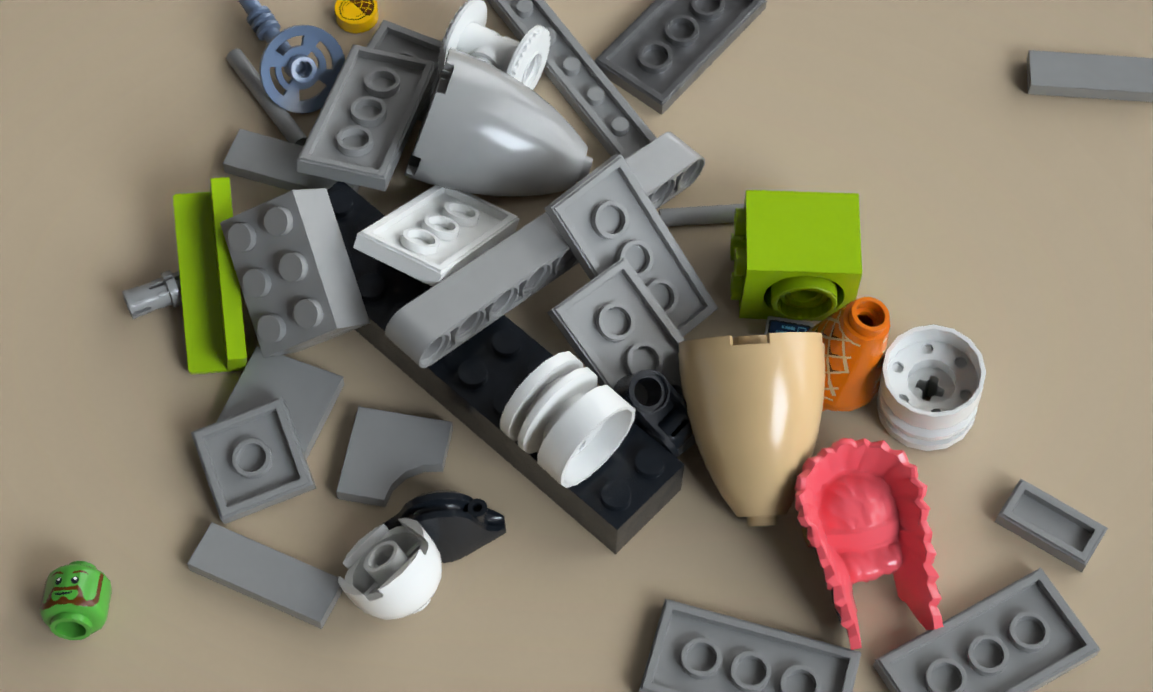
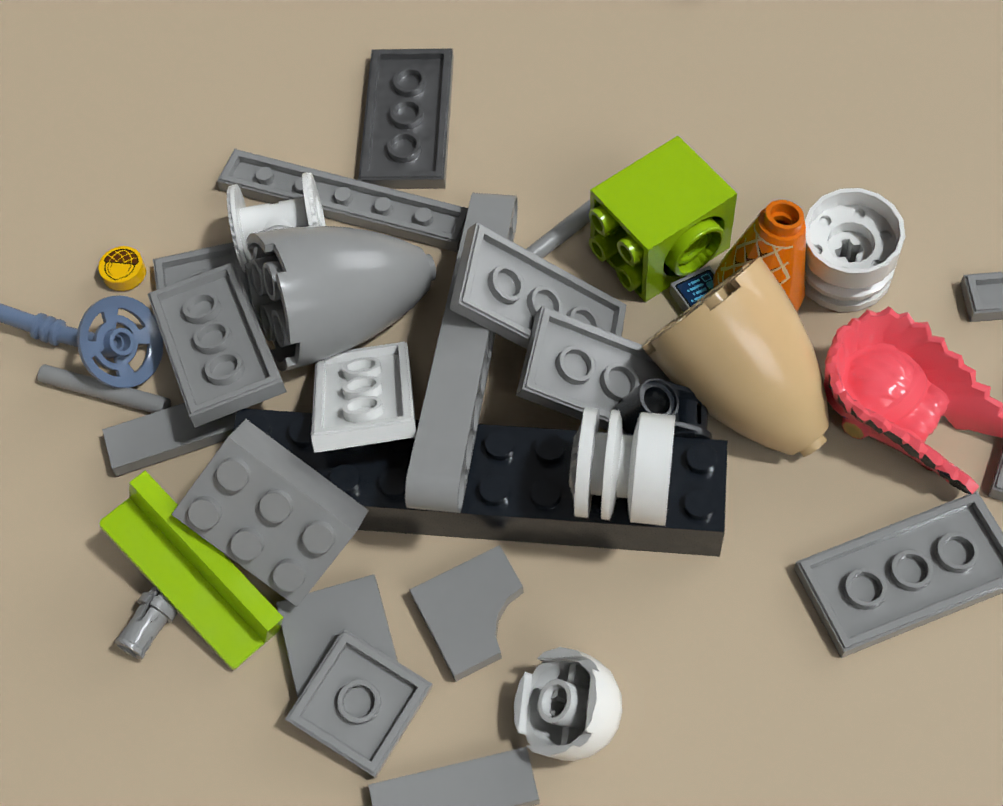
camera: 30 degrees left, 0 degrees up
(453, 522) = (570, 623): black hat -> none

